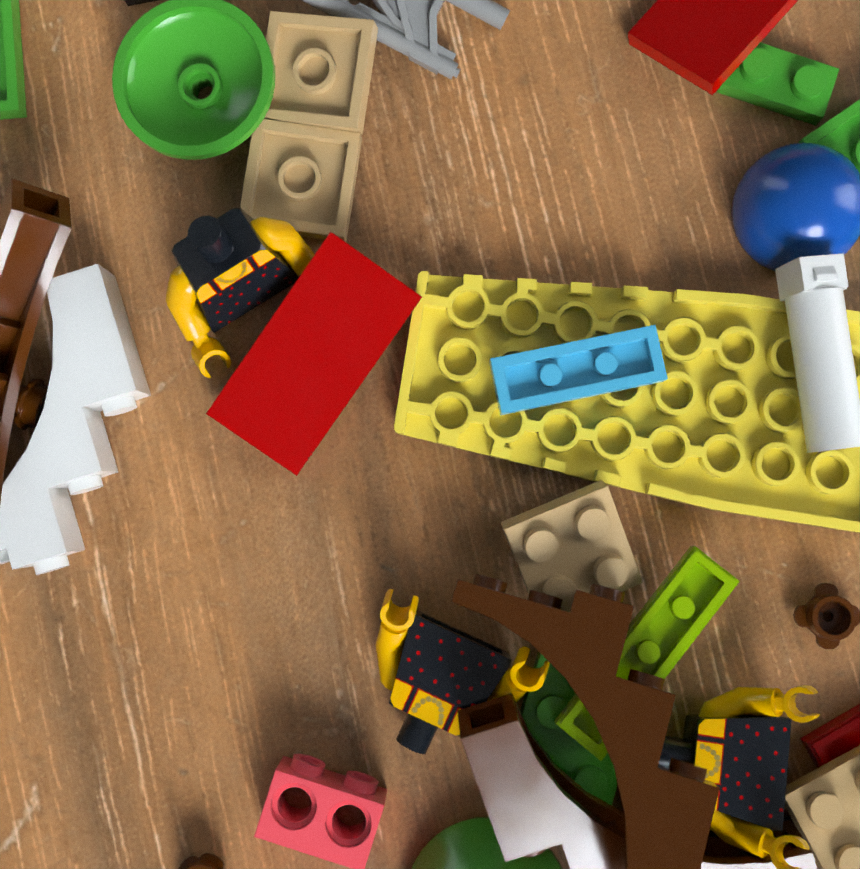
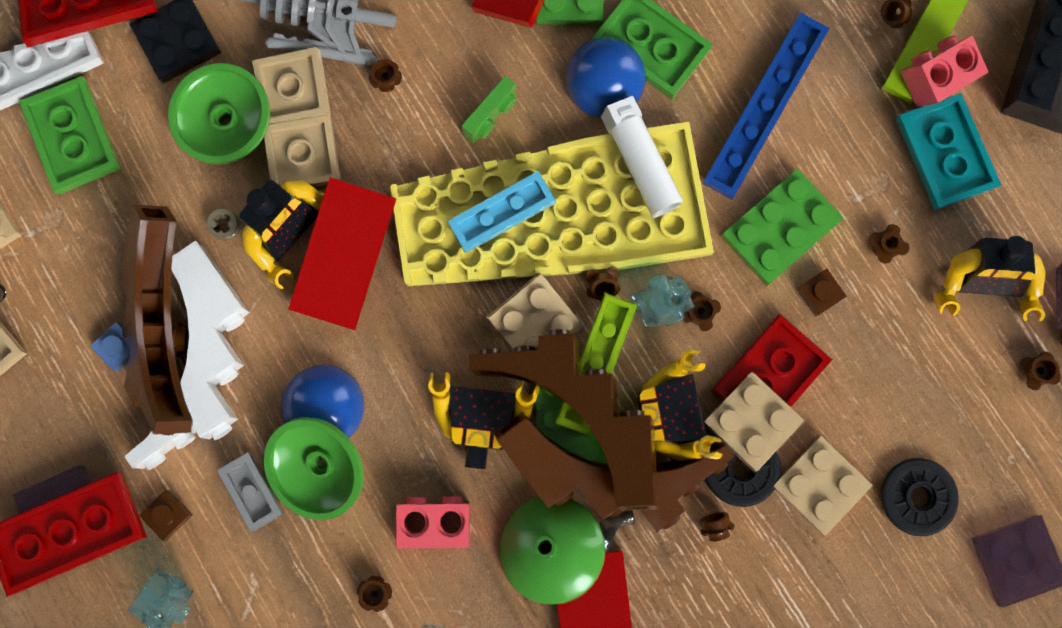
camera: 20 degrees left, 5 degrees down
(67, 670) = (250, 492): none -> light grey plate
(136, 245) = (213, 225): none -> dark tan bush
(169, 671) = (302, 477): none -> bright green dish
(214, 572) = (324, 394): none -> blue piece
(460, 85) = (385, 67): none -> reddish brown plate
(625, 193) = (481, 120): none -> bright green plate
(693, 526) = (596, 288): none -> reddish brown plate
(780, 587) = (663, 300): none -> clear light blue brick

